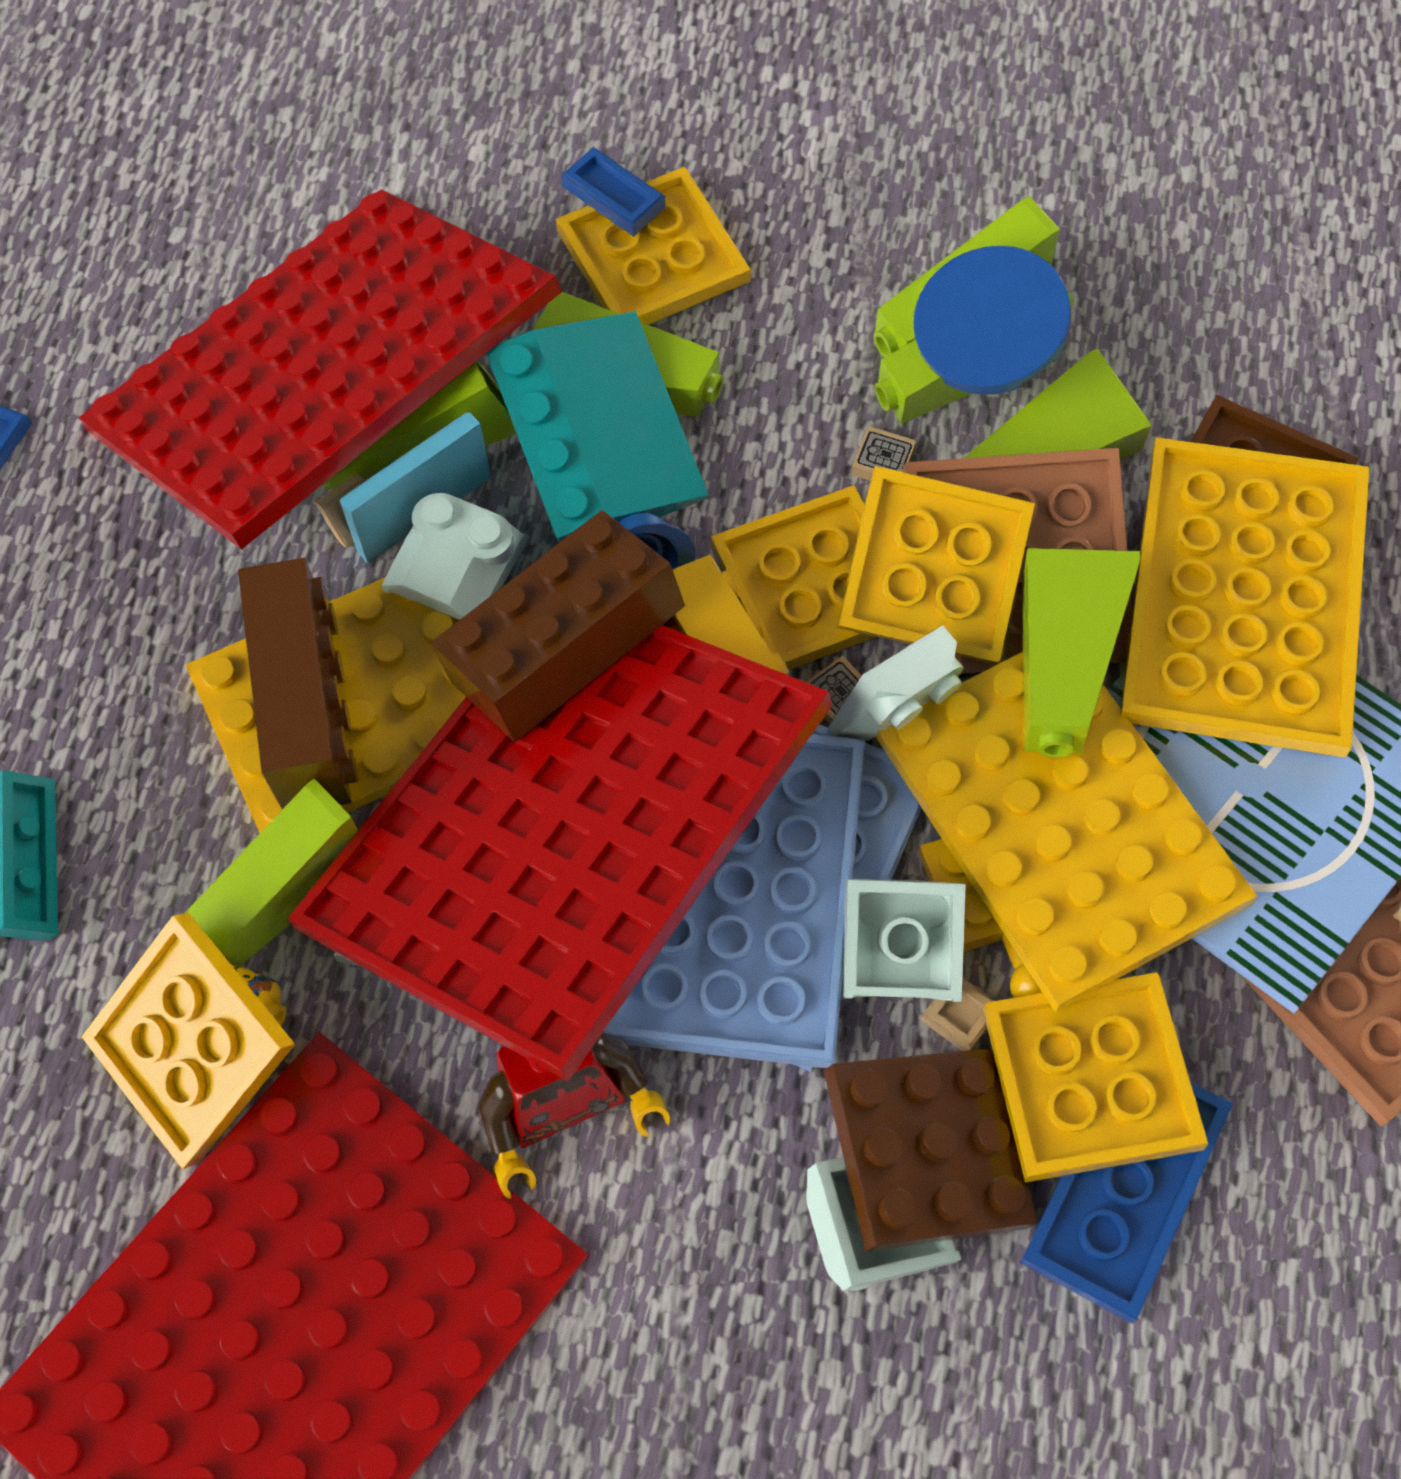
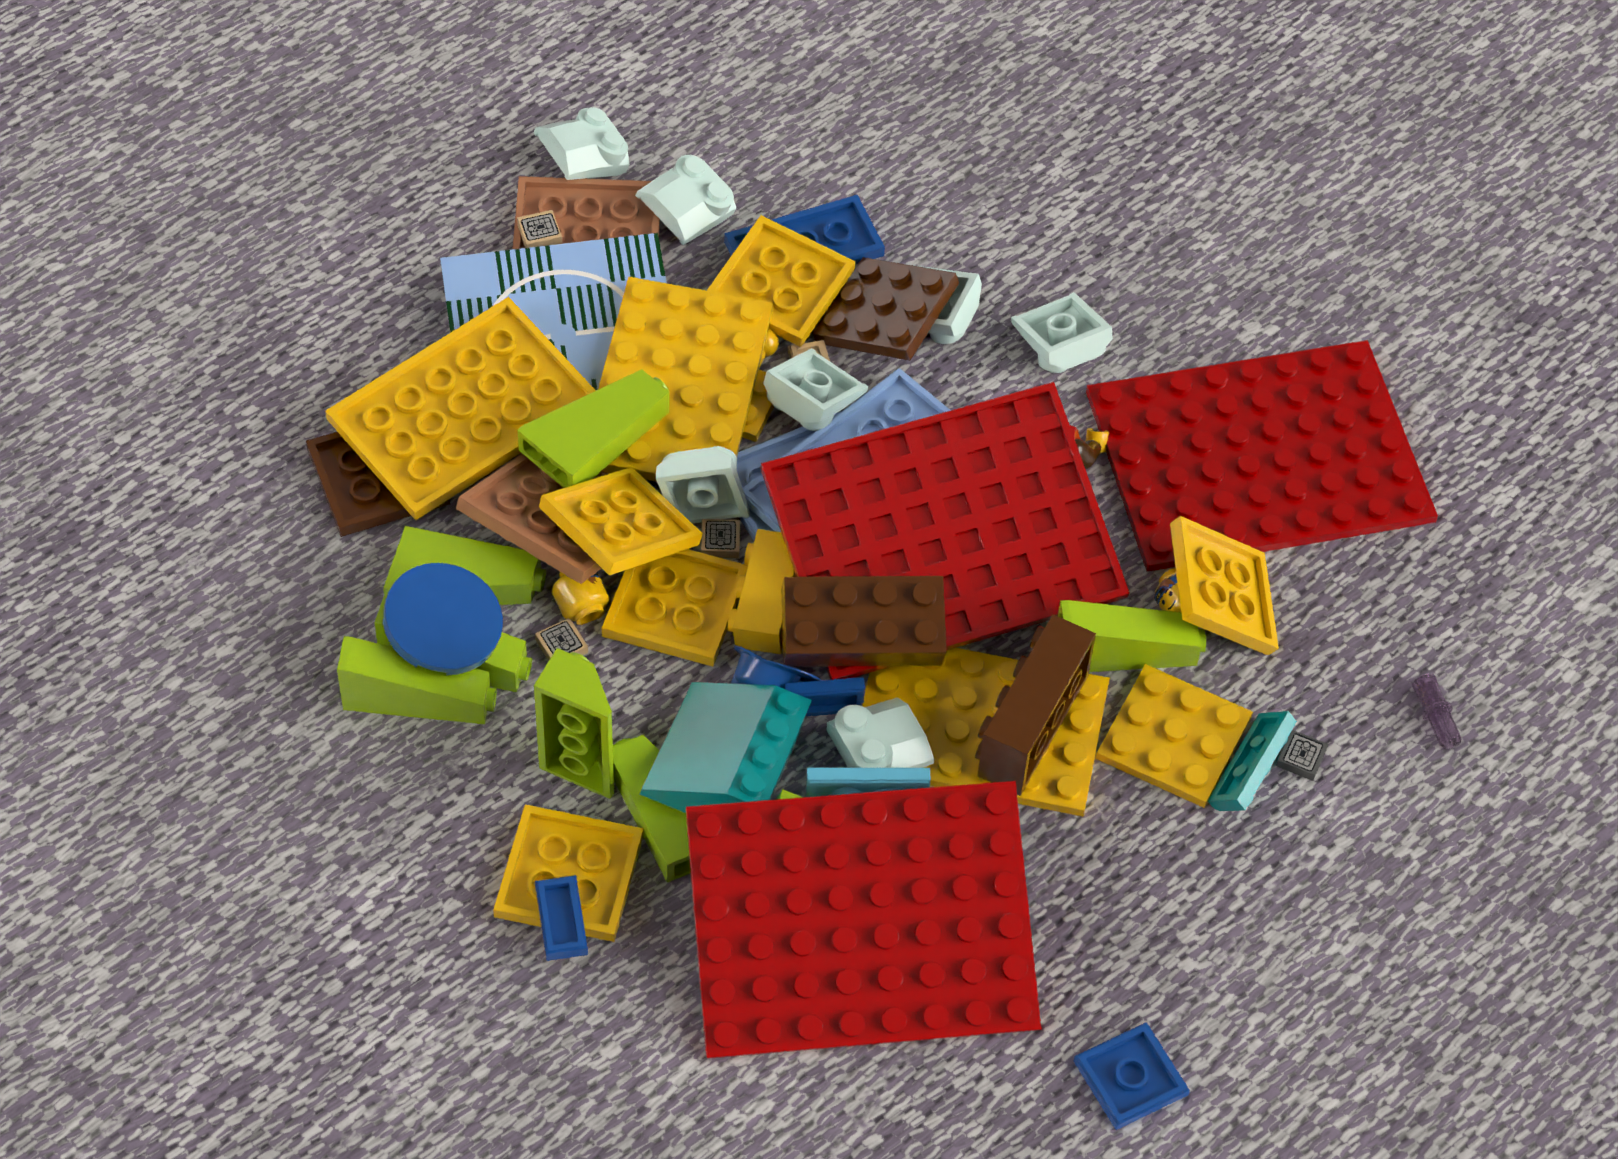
camera: 145 degrees left, 10 degrees down
(141, 833) = (1174, 735): none -> yellow plate
(680, 1310) = (1064, 333): none -> light aqua slope
(746, 295) = (574, 723): none -> lime slope
(1328, 1114) = (689, 198): none -> light aqua slope

